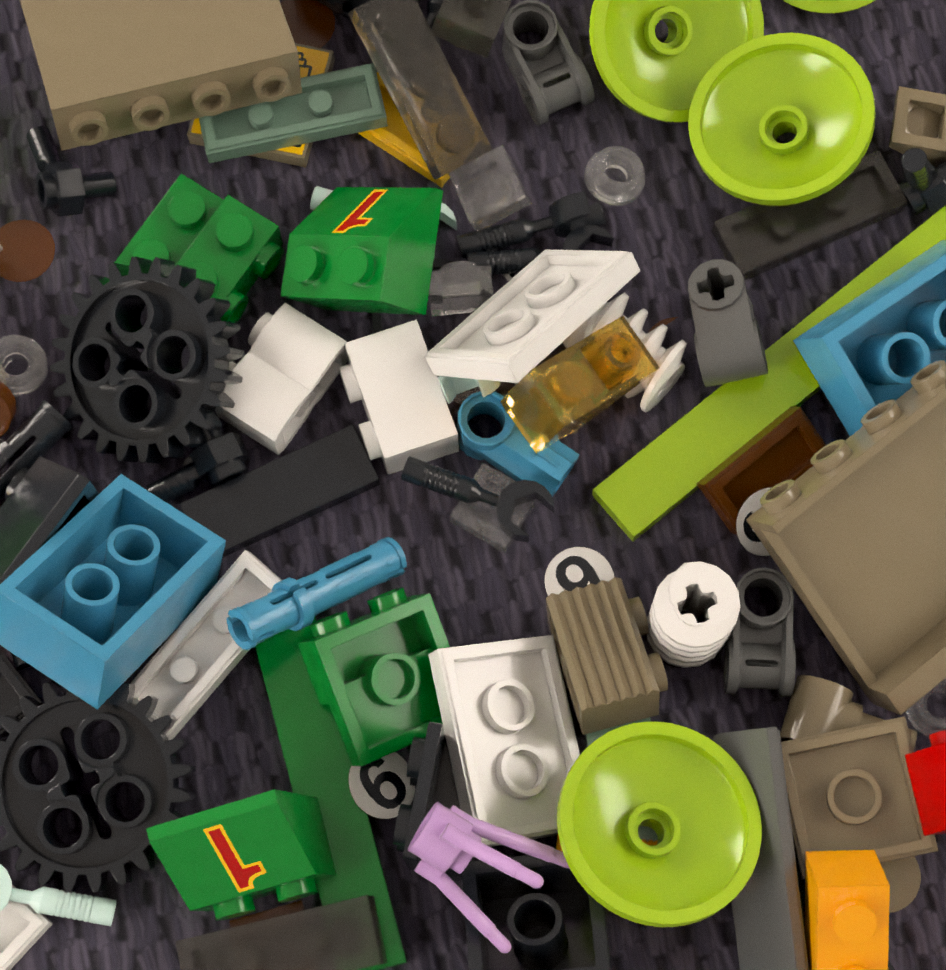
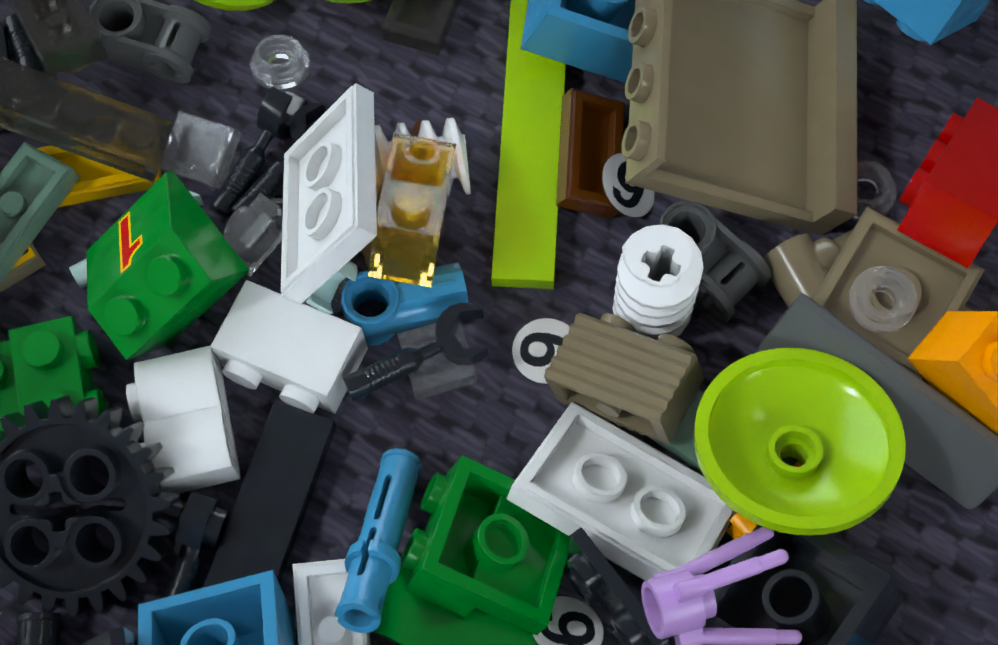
camera: 45 degrees left, 5 degrees down
(725, 329) = (464, 83): dark grey piece -> none
(849, 776) = (890, 282): none -> clear plate

